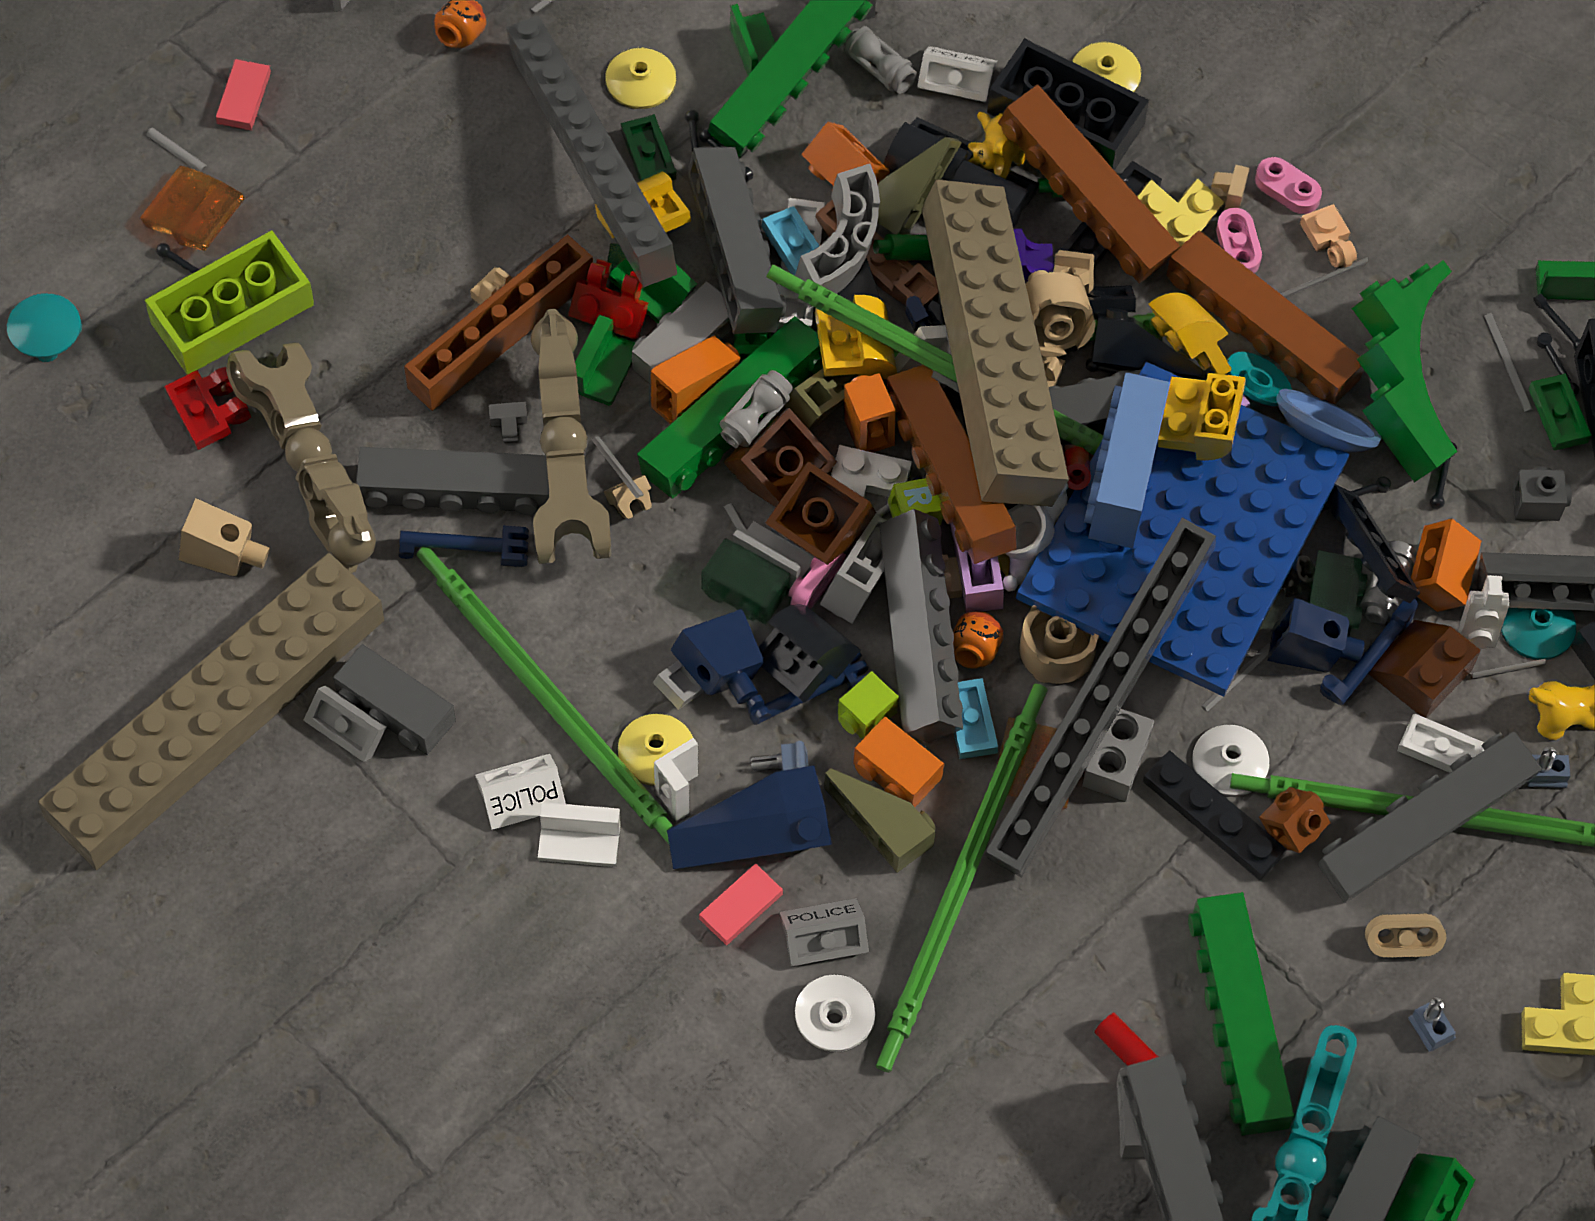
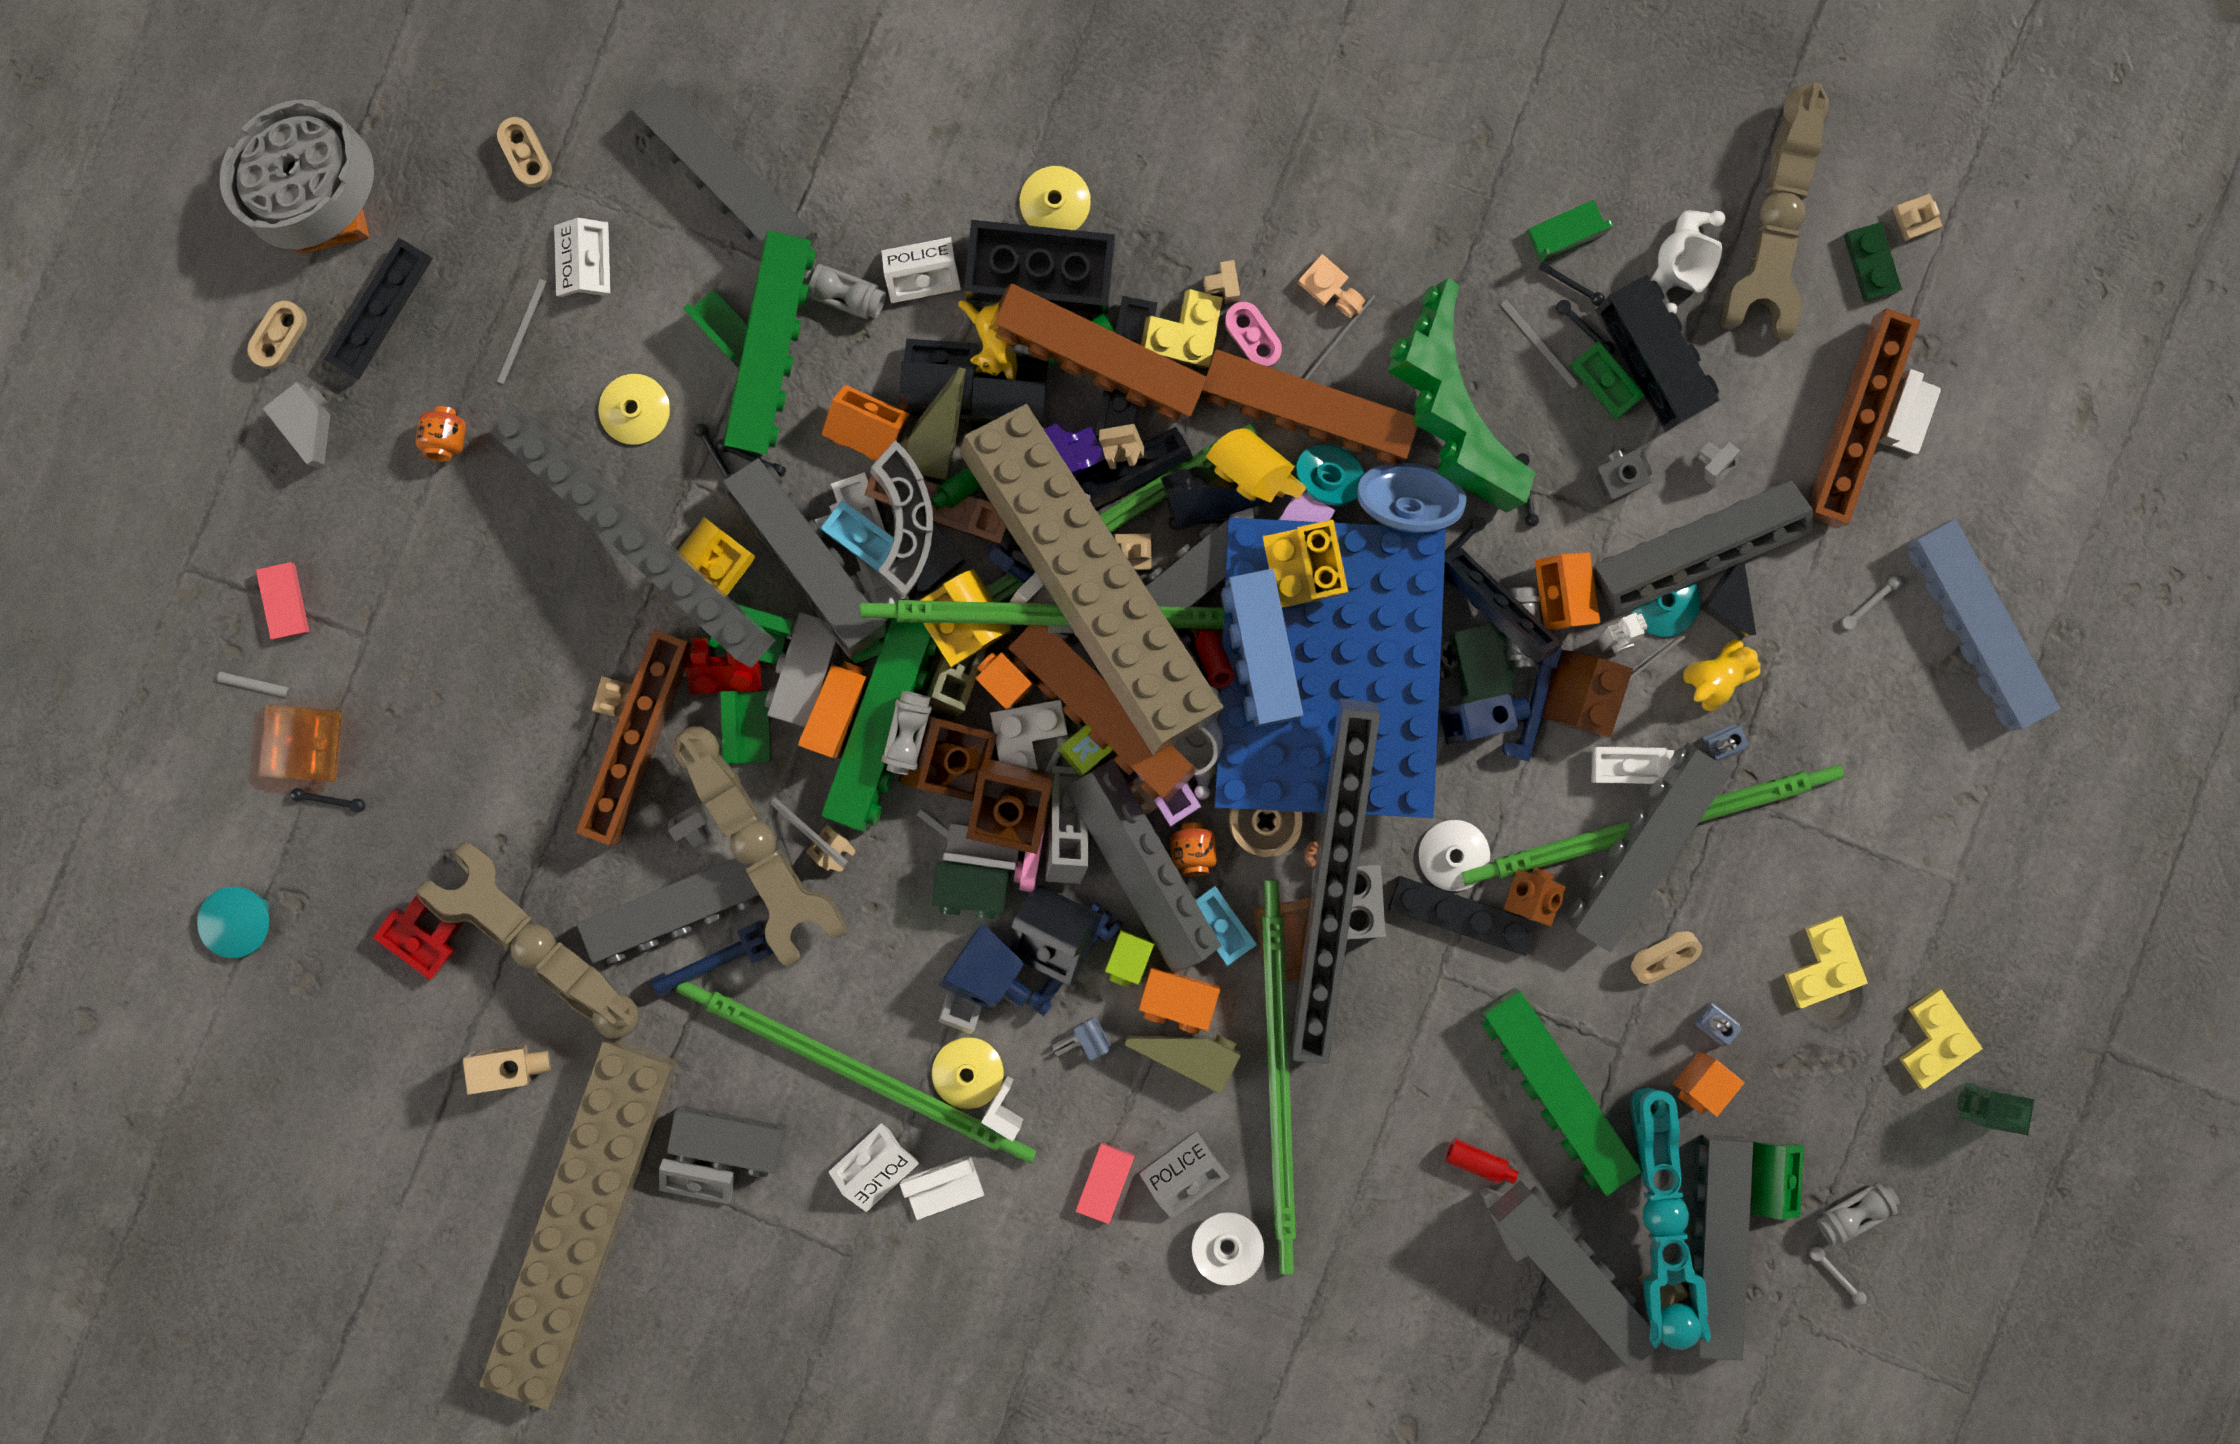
camera: 20 degrees left, 25 degrees up
(229, 302) = (362, 857): lime brick -> none
(647, 147) = (679, 489): dark green plate -> none
(765, 819) = (1092, 1110): dark blue wedge -> none
(1059, 311) = (1129, 507): tan brick -> none
(1286, 185) = (1271, 253): bright pink plate -> none
(1397, 1061) = (1707, 1085): none -> orange brick

